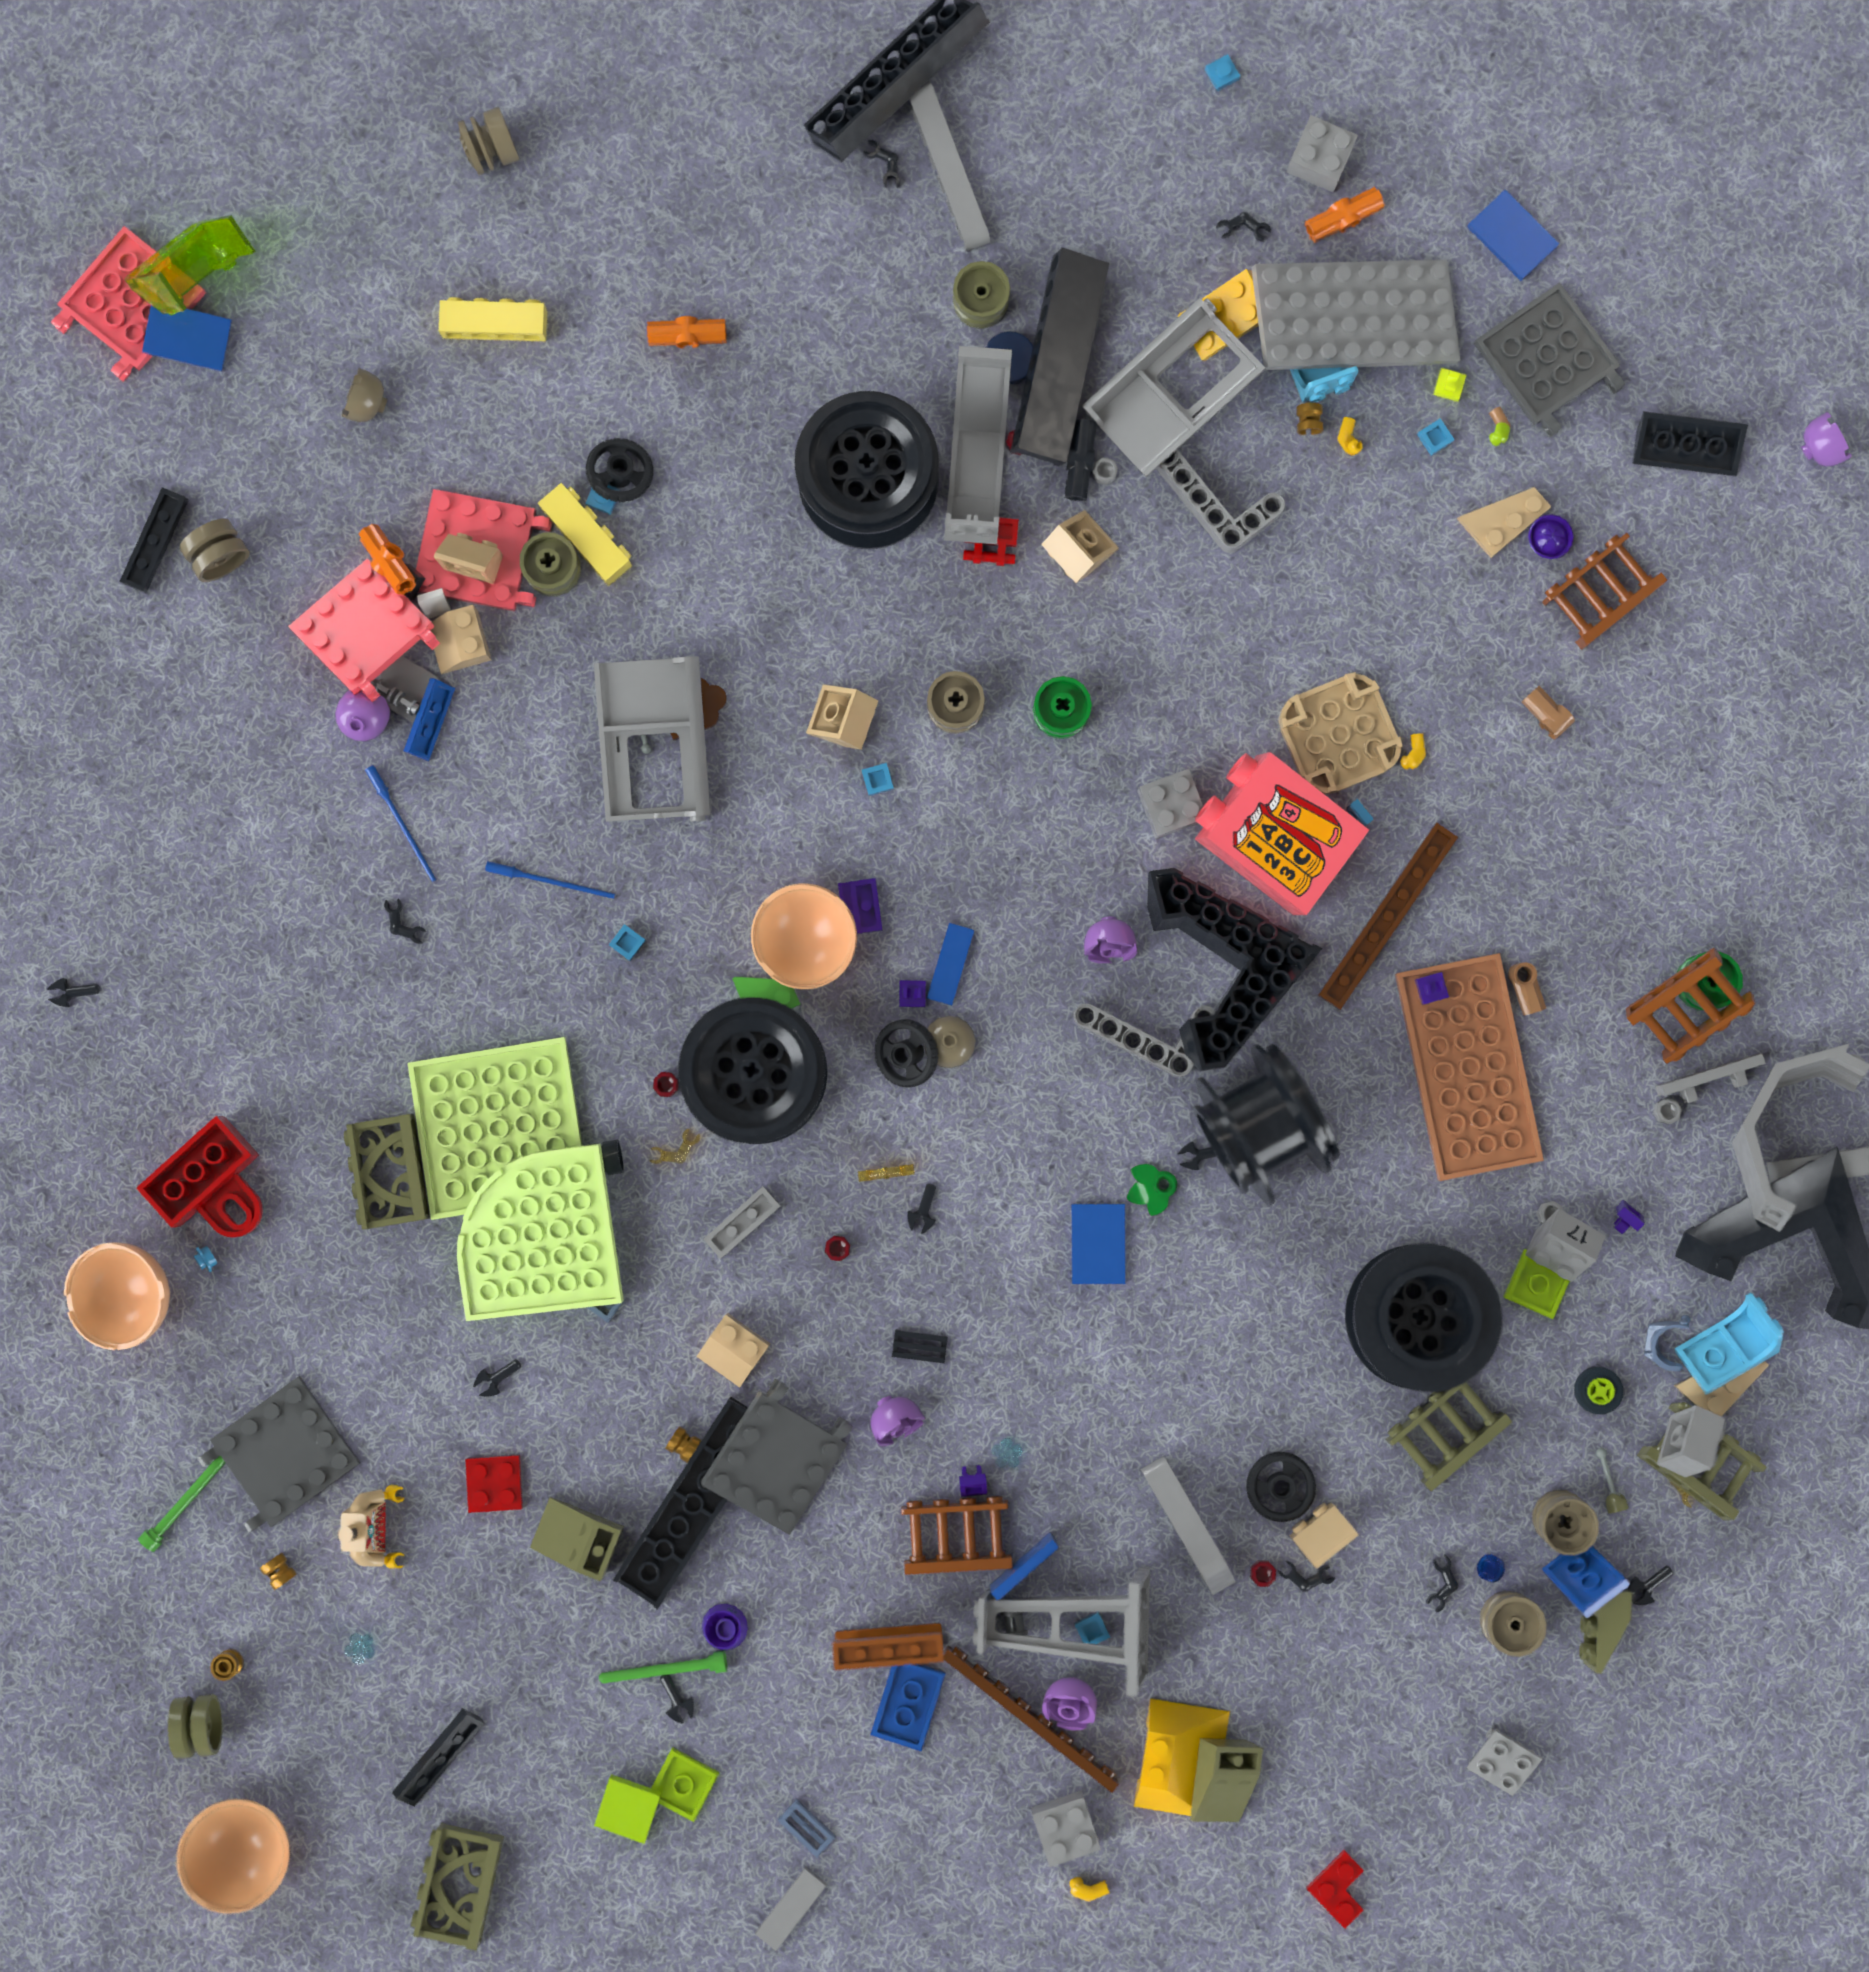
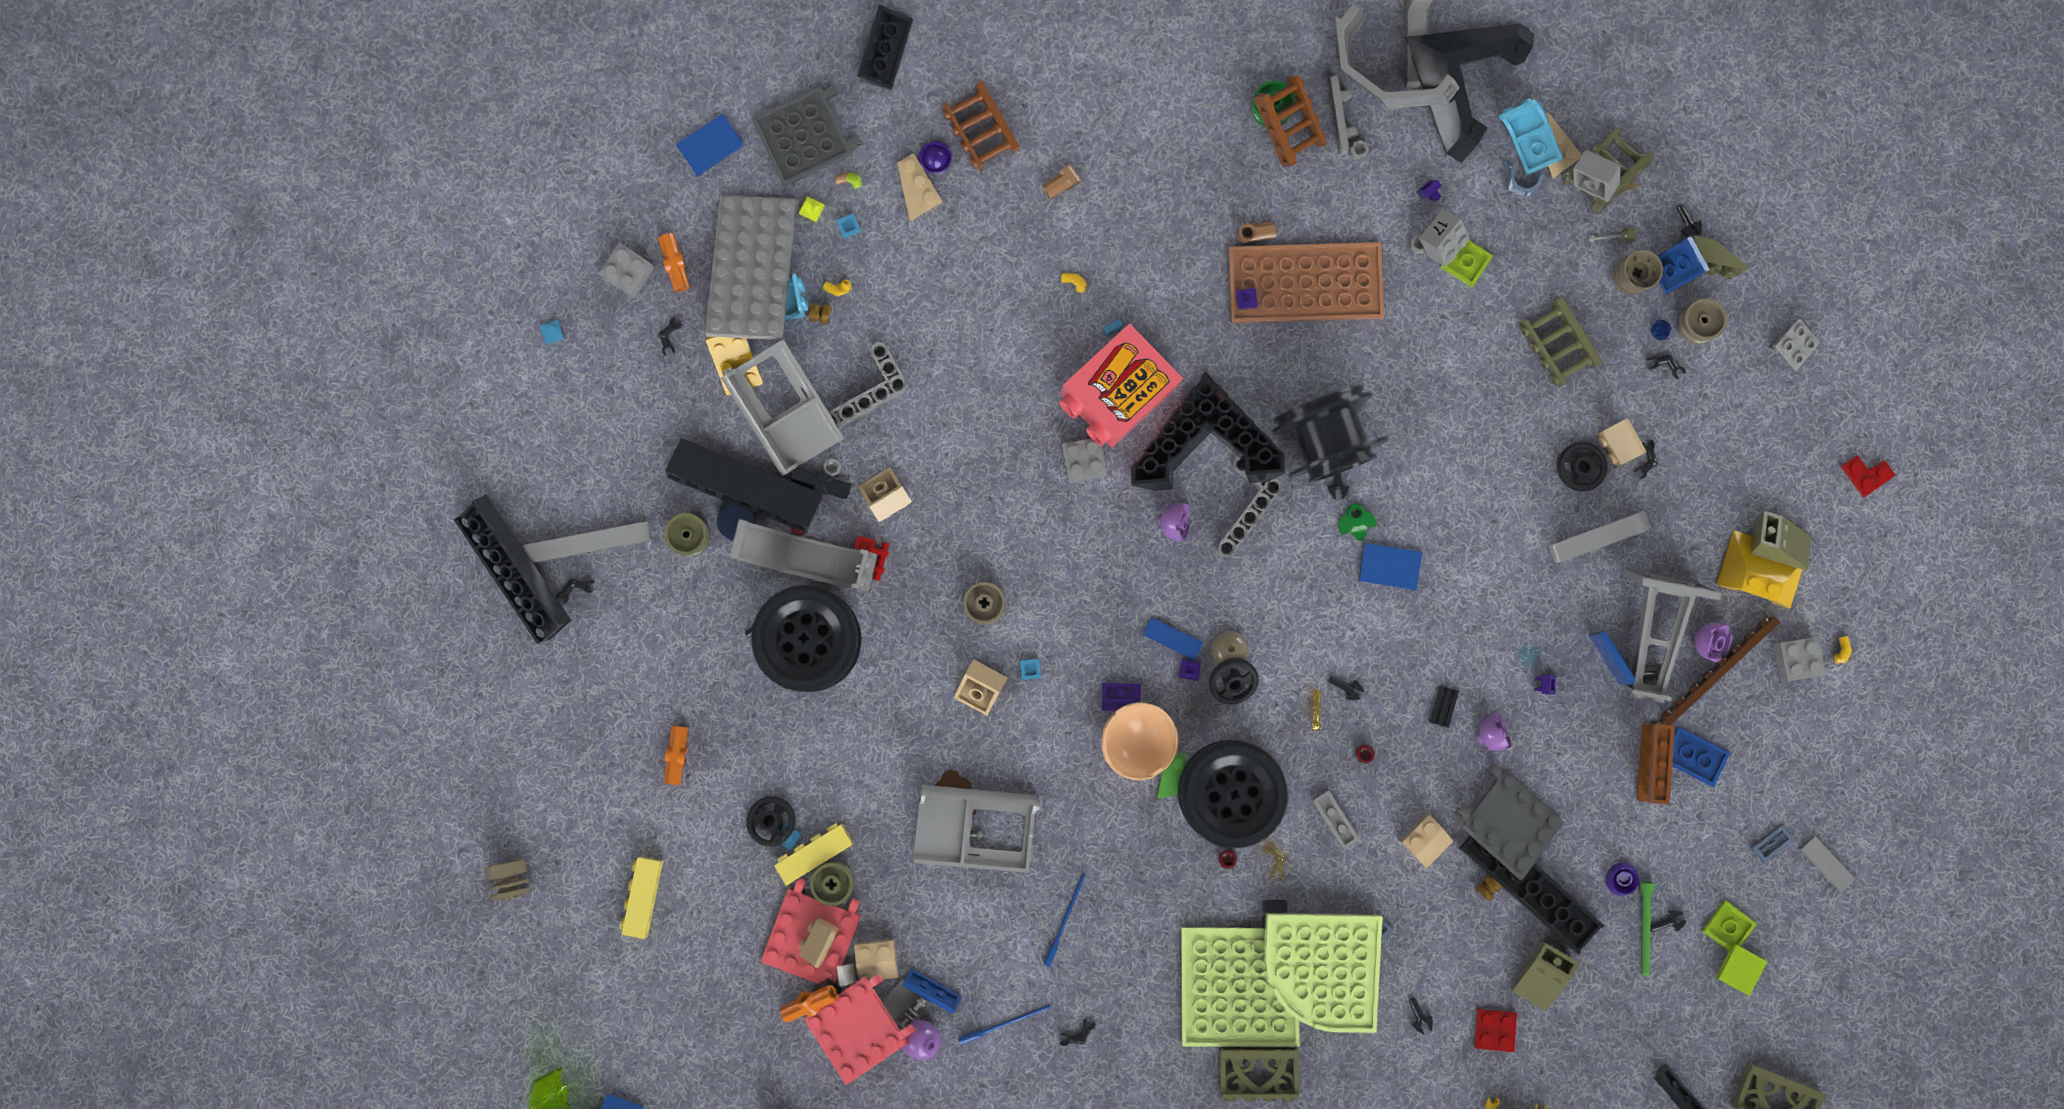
camera: 75 degrees left, 0 degrees up
(364, 397) = (684, 1002): dark tan cylinder -> none
(627, 942) = (1119, 871): dark azure plate -> none
(944, 1561) = (1602, 695): dark orange fence -> none
(1064, 692) = (1001, 516): green wheel -> none
(1092, 1629) = (1663, 617): dark azure plate -> none
(1263, 1573) = (1640, 489): dark red tile -> none
(1340, 733) = (1052, 332): tan tile -> none
(1387, 916) = (1189, 321): reddish brown plate -> none
(1468, 1301) = (1509, 325): black wheel -> none
(1605, 1398) = (1553, 227): black wheel -> none

